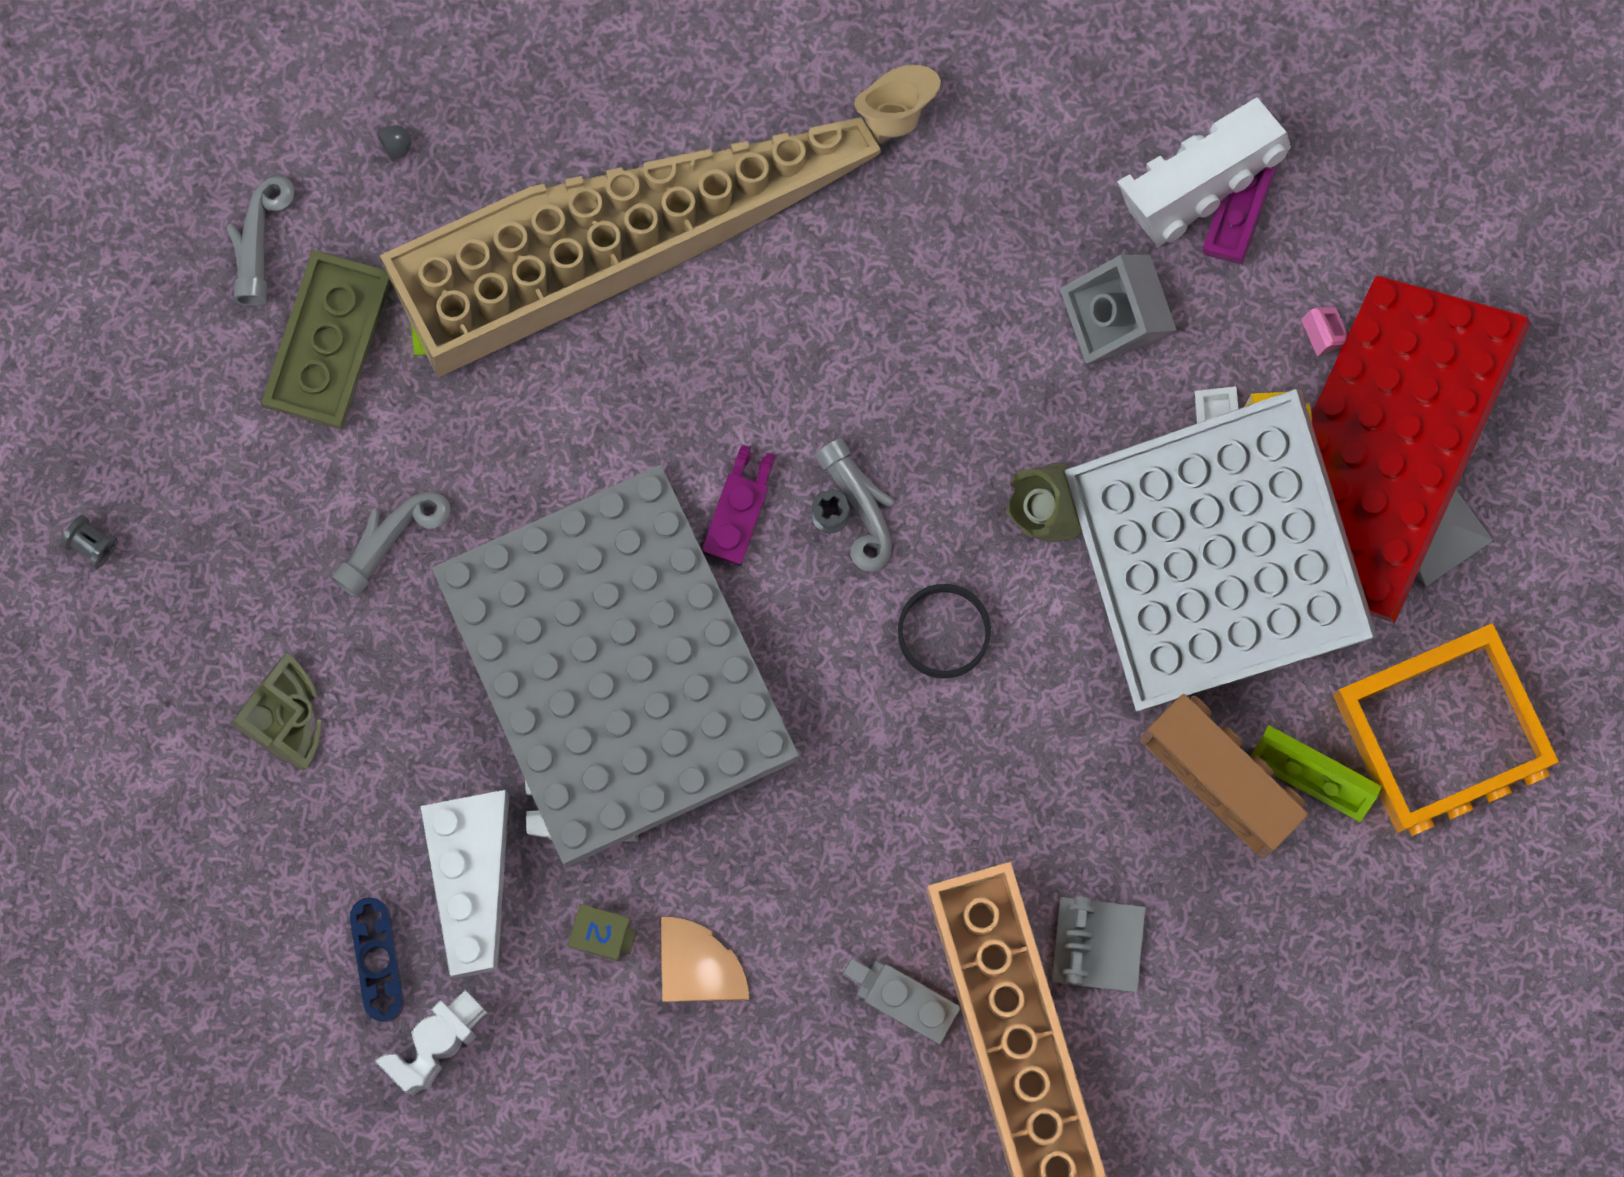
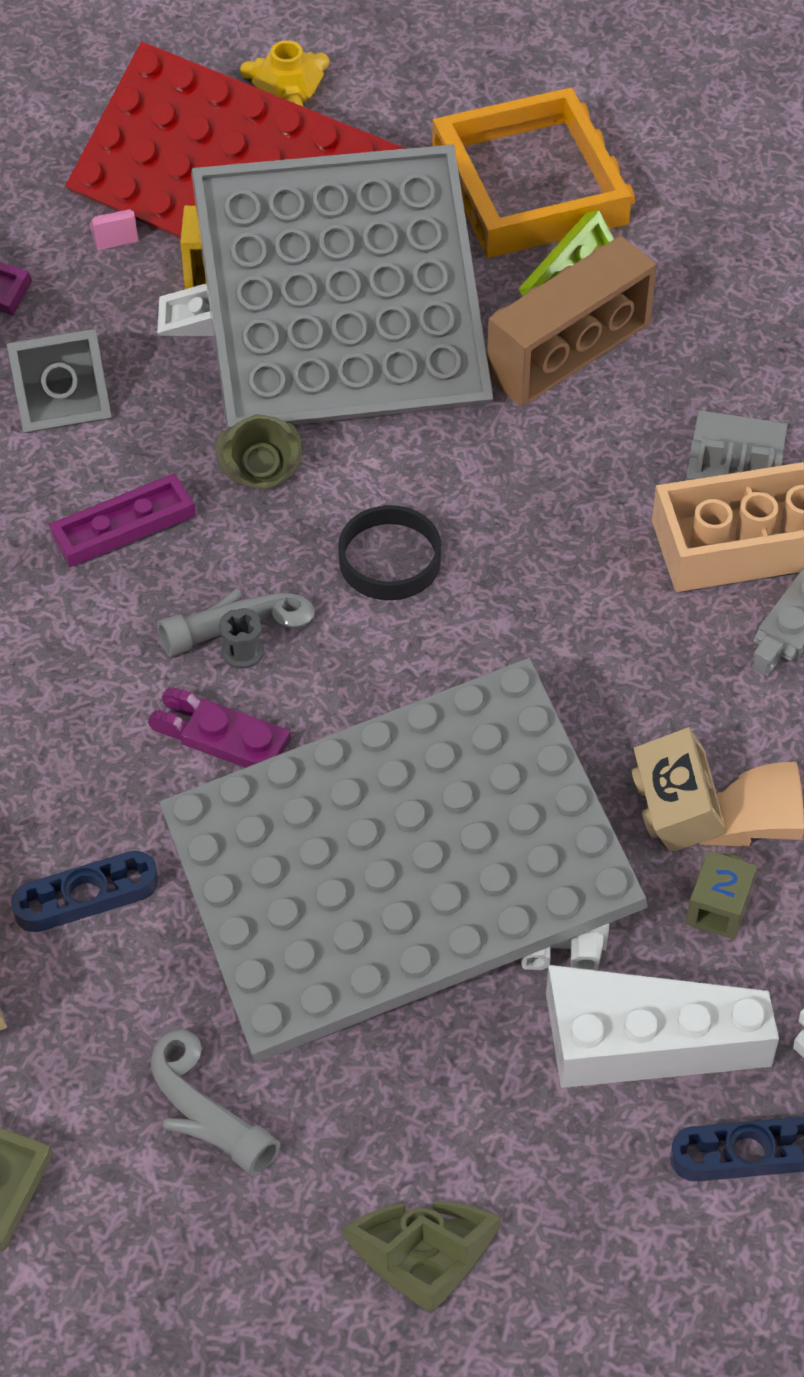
camera: 85 degrees left, 25 degrees down
(571, 386) = (93, 873): none -> dark blue beam
(696, 894) = (678, 791): none -> tan brick
(957, 391) = (122, 520): none -> magenta plate
(1559, 473) = (287, 71): none -> yellow rock

